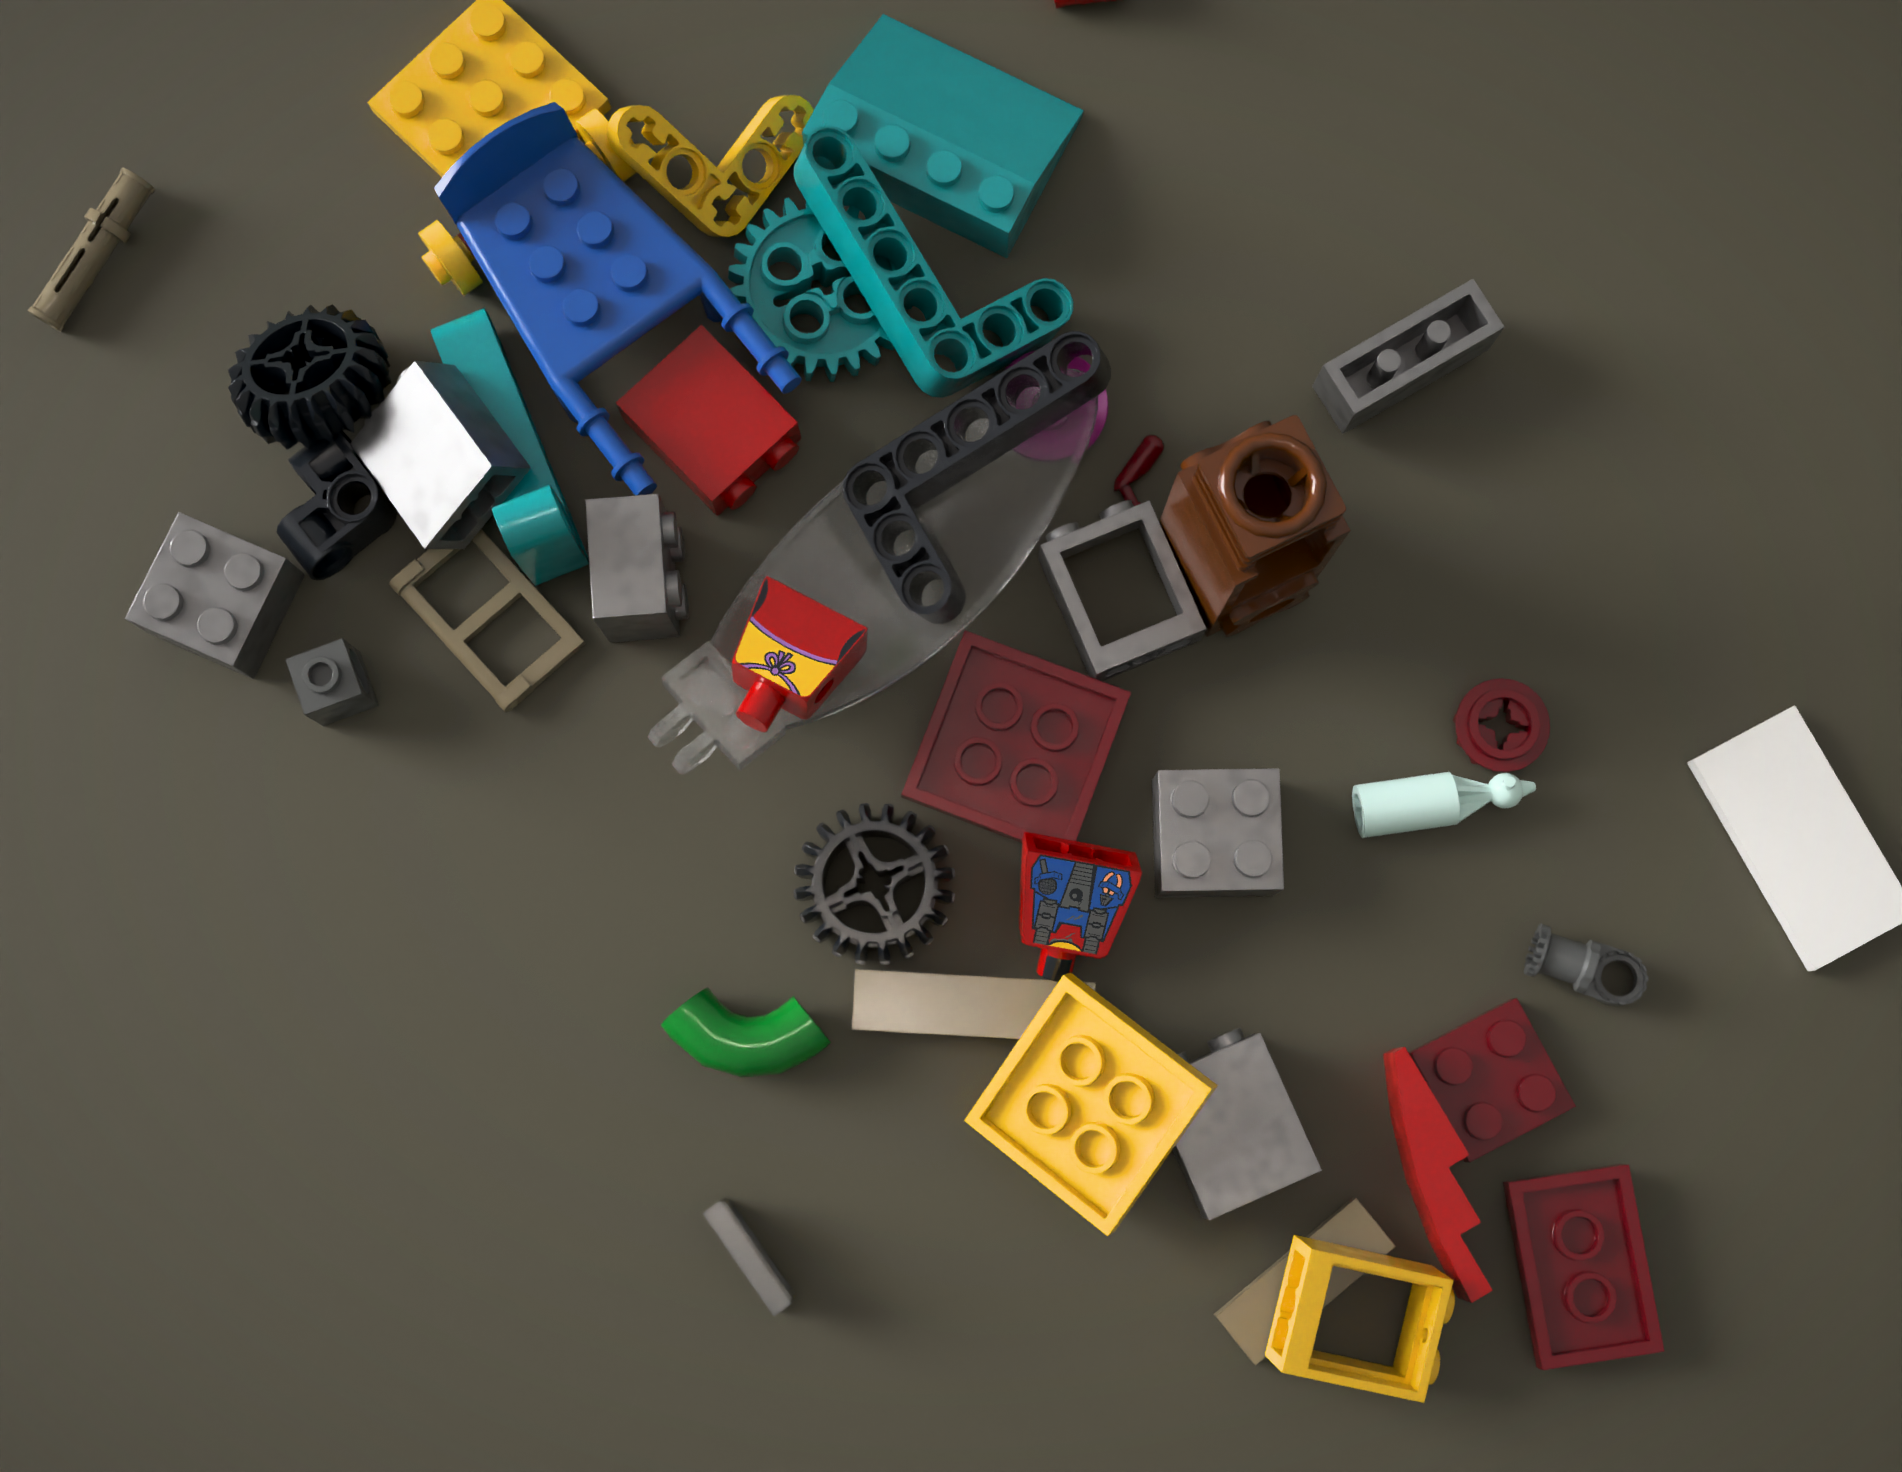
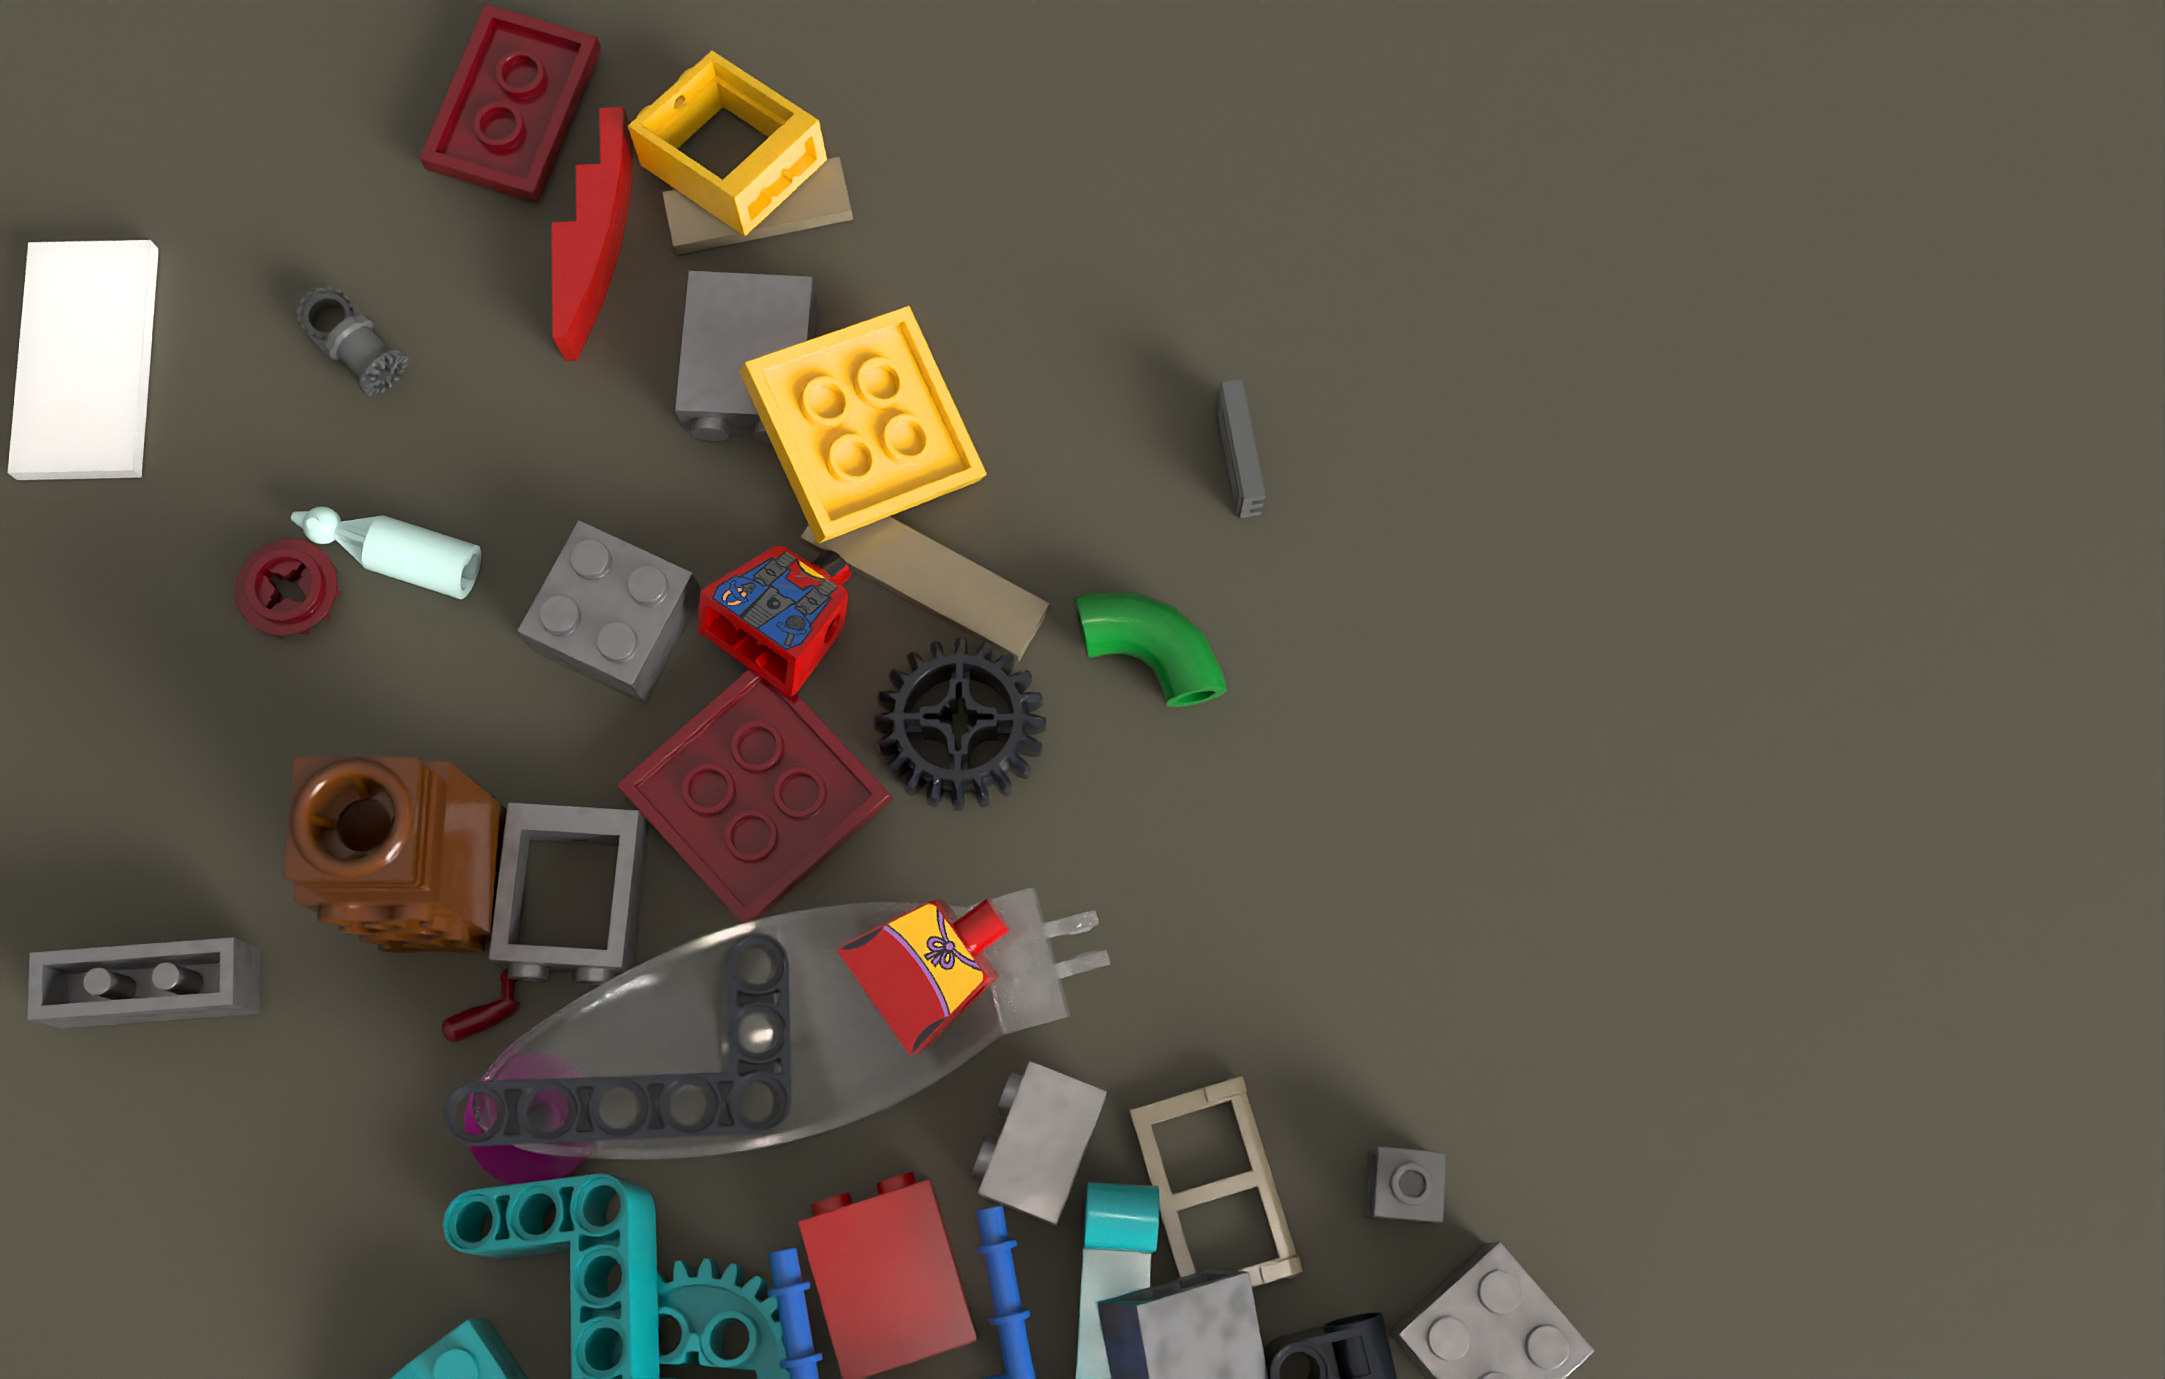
camera: 155 degrees left, 5 degrees down
(1493, 1078) = (491, 290): dark red plate -> none

